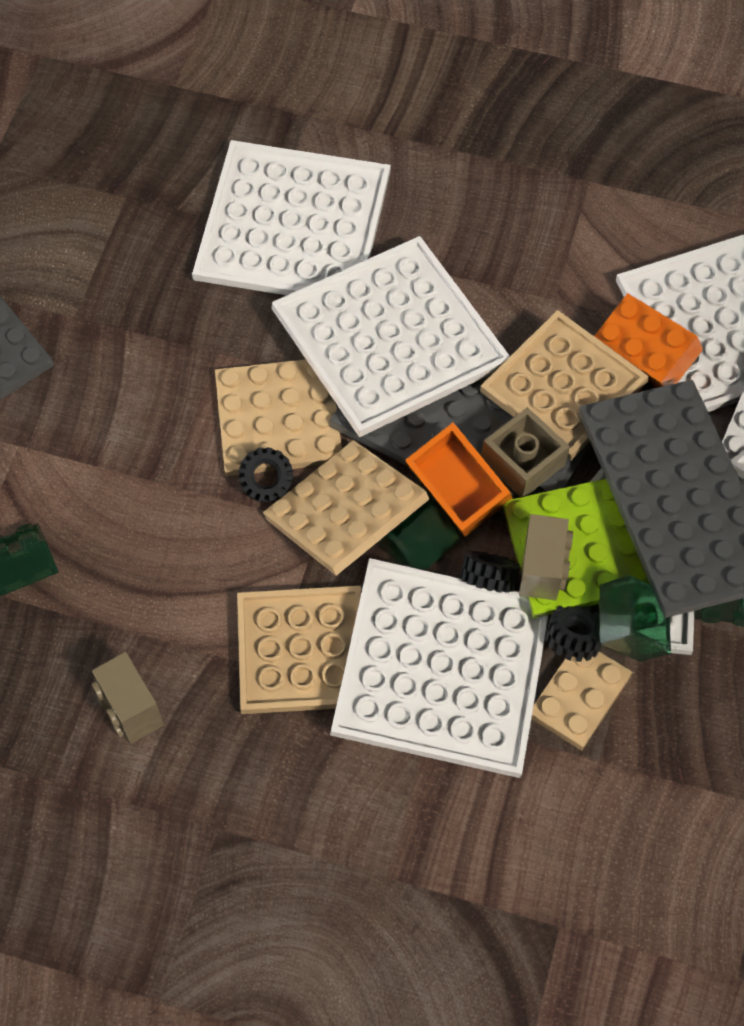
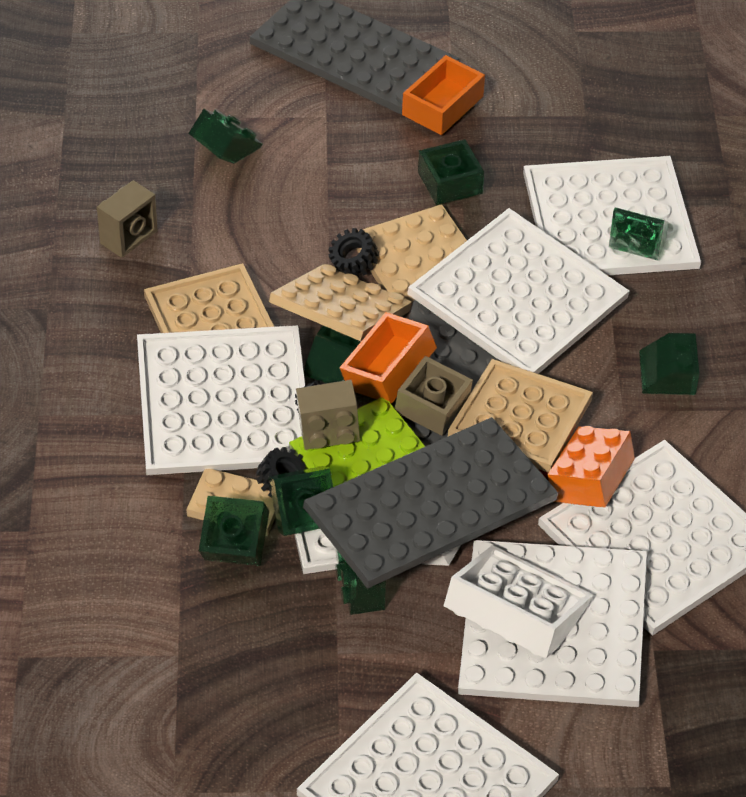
camera: 70 degrees right, 15 degrees down
(54, 314) = (443, 94): none -> orange piece
(178, 343) = (450, 172): none -> clear green brick
(348, 199) = (637, 233): none -> clear green slope
(519, 237) = (670, 365): none -> clear green slope
(644, 702) = (234, 530): none -> clear green brick

